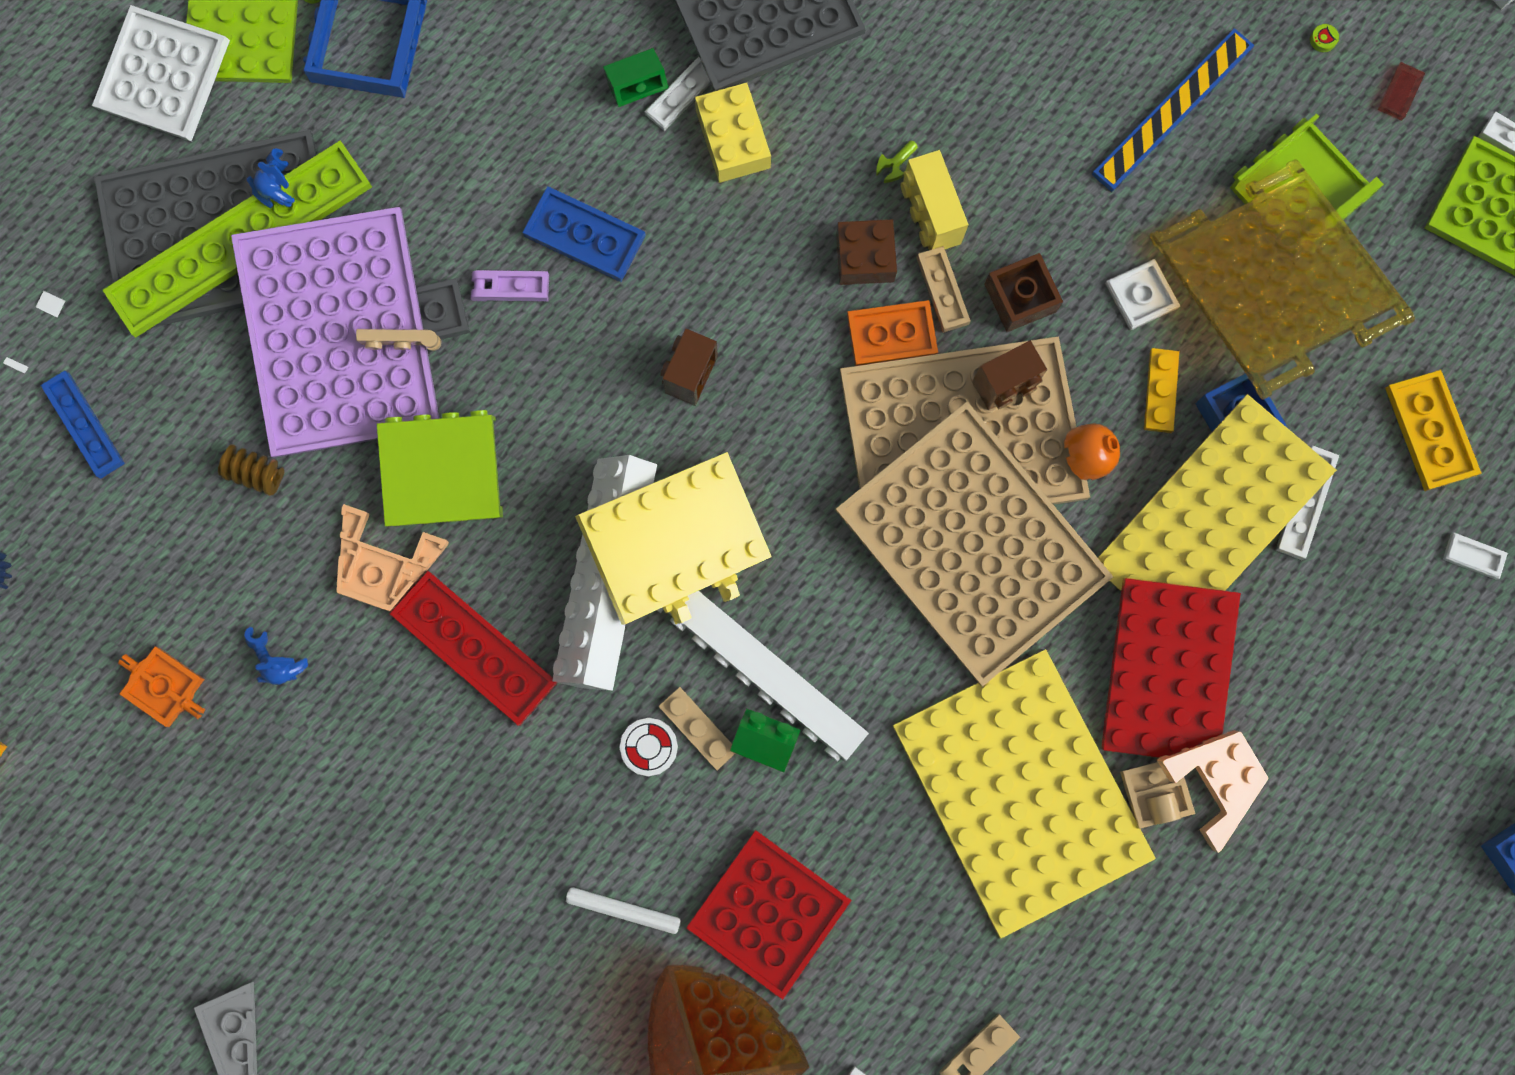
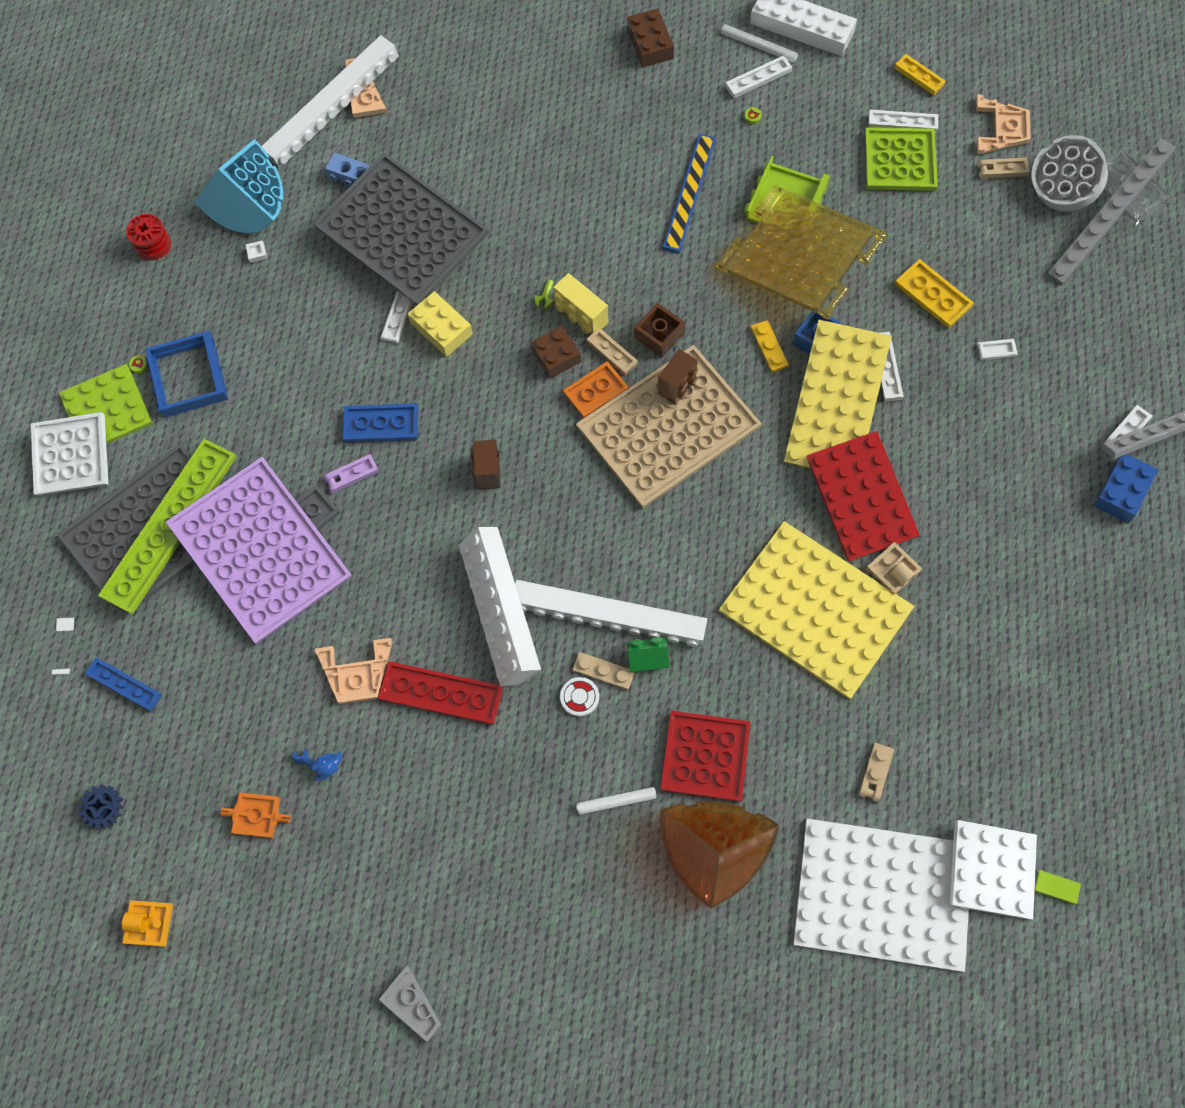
camera: 20 degrees left, 10 degrees down
(250, 471) = (245, 658): pearl gold piece -> none
(269, 179) = (173, 481): blue piece -> none
(401, 339) = (301, 532): tan plate -> none
(439, 469) = (365, 597): lime panel -> none
(635, 77) = (365, 320): green brick -> none
(674, 540) = (531, 564): light yellow hinge -> none
(974, 543) = (709, 482): tan plate -> none
(1092, 451) = (748, 396): orange cylinder -> none
(1142, 294) = (728, 300): white tile -> none
(1230, 775) = (928, 536): light nougat wing -> none
(1401, 91) = (811, 123): clear red tile -> none

